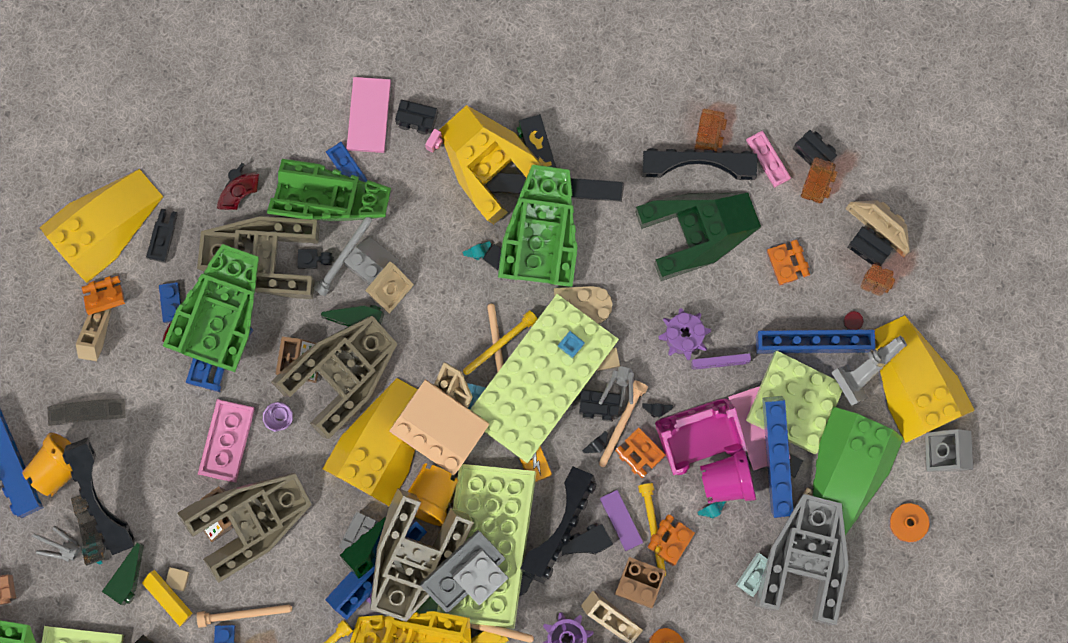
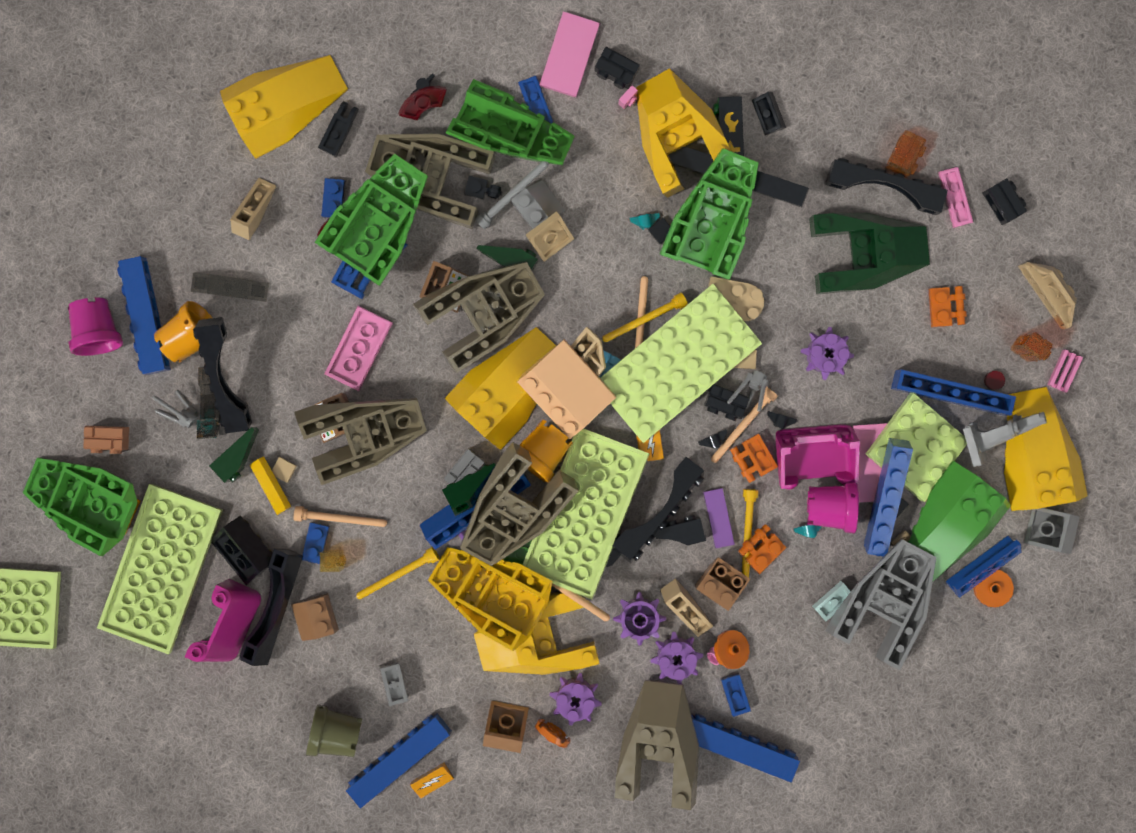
camera: 15 degrees right, 10 degrees up
(103, 299) = (271, 179): orange plate -> none
(280, 411) = (413, 331): lavender hair -> none
(440, 583) = (556, 534): plate -> none
(480, 577) = (572, 544): light grey plate -> none
(571, 124) = (768, 113): none -> black slope
(571, 344) = (714, 338): dark azure tile -> none
(720, 361) = (857, 389): medium lavender tile -> none
(818, 180) = (1002, 232): clear orange brick -> none
(870, 247) = (1033, 311): black brick -> none
(893, 503) = (984, 566): none -> blue fence
(921, 280) = (1072, 356): none -> bright pink tile

